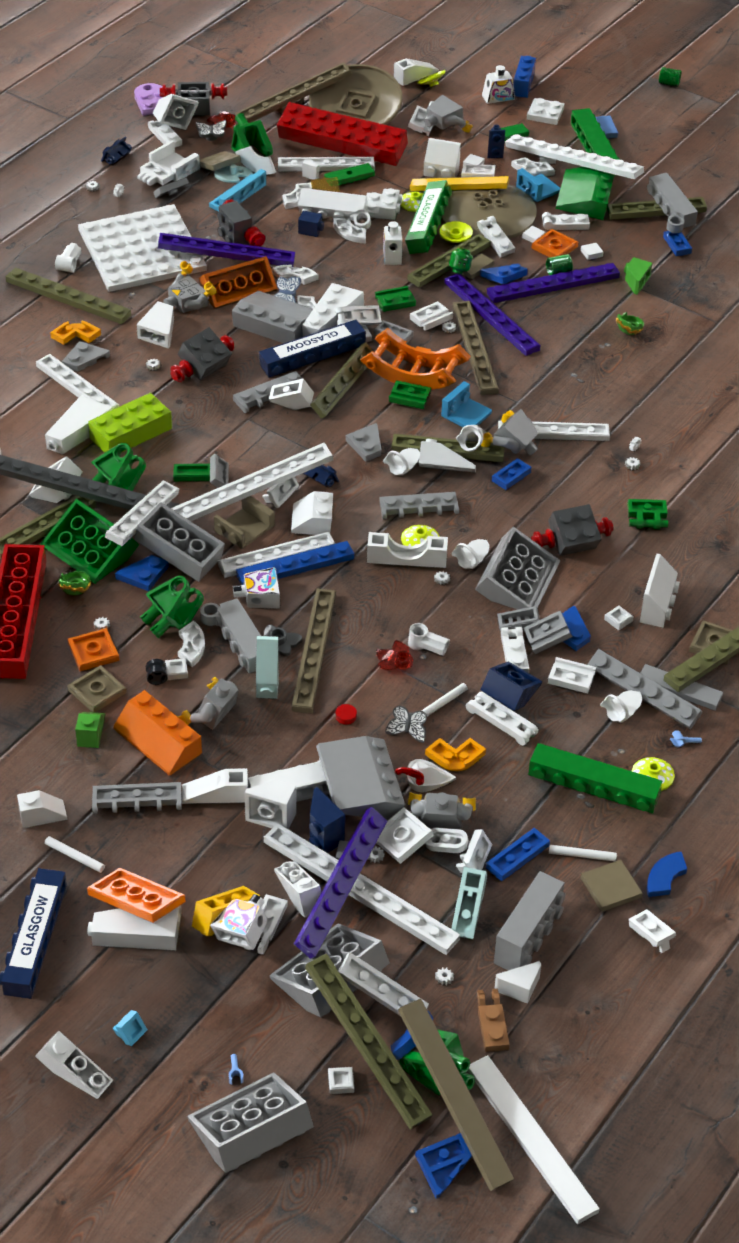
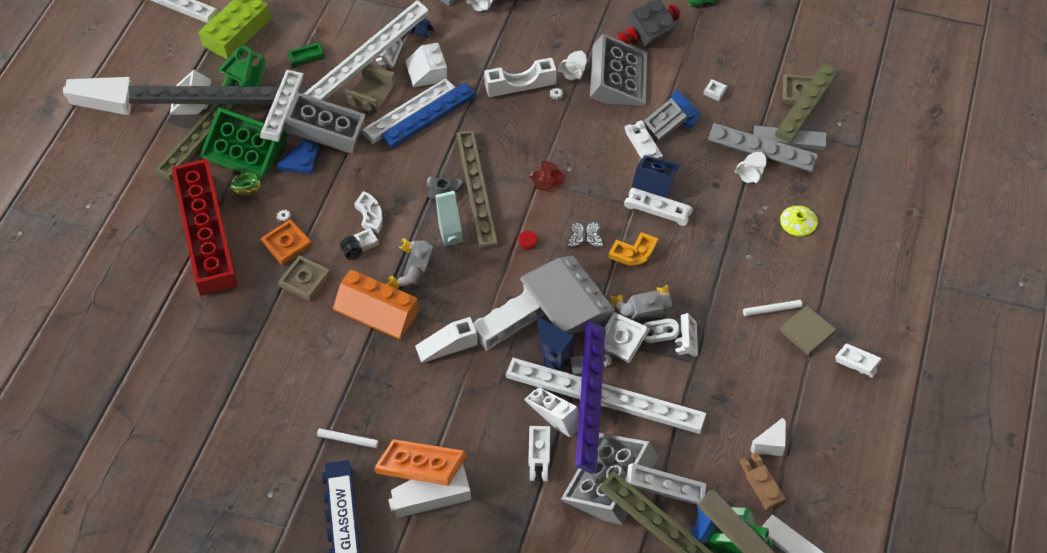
camera: 15 degrees left, 10 degrees up
(40, 808) = (301, 405): white slope -> none
(73, 425) = (185, 37): white slope -> none
(89, 729) = (314, 317): bright green slope -> none
(136, 796) = (380, 368): light grey hinge -> none
(172, 605) = (342, 183): green piece -> none
(210, 908) = (498, 451): yellow slope -> none
(218, 471) = (330, 49): light grey plate -> none
(235, 627) = (406, 189): light grey hinge -> none
(241, 922) = (521, 460): white torso -> none
(259, 589) = (409, 146): white torso -> none
(271, 803) = (502, 342): white slope -> none
(417, 534) = (521, 61): neon yellow dish -> none
(418, 504) = (510, 32): light grey hinge -> none
(421, 639) = (563, 153): white piece -> none
(425, 775) = (617, 276): white piece -> none
(444, 980) = (706, 450): white piece -> none
(445, 699) = (601, 207): white bar -> none
(469, 902) = (701, 381): light aqua slope -> none
(517, 854) = (722, 325): blue plate -> none
(529, 922) = (761, 386): light grey brick -> none
(530, 615) = (639, 107): light grey slope -> none
(572, 675) = (699, 152): white plate -> none
(595, 778) = (757, 238): green brick -> none
(659, 593) = (741, 60): white slope -> none
(664, 873) = (845, 305): blue tile -> none
(679, 740) = (808, 184): light blue hand -> none

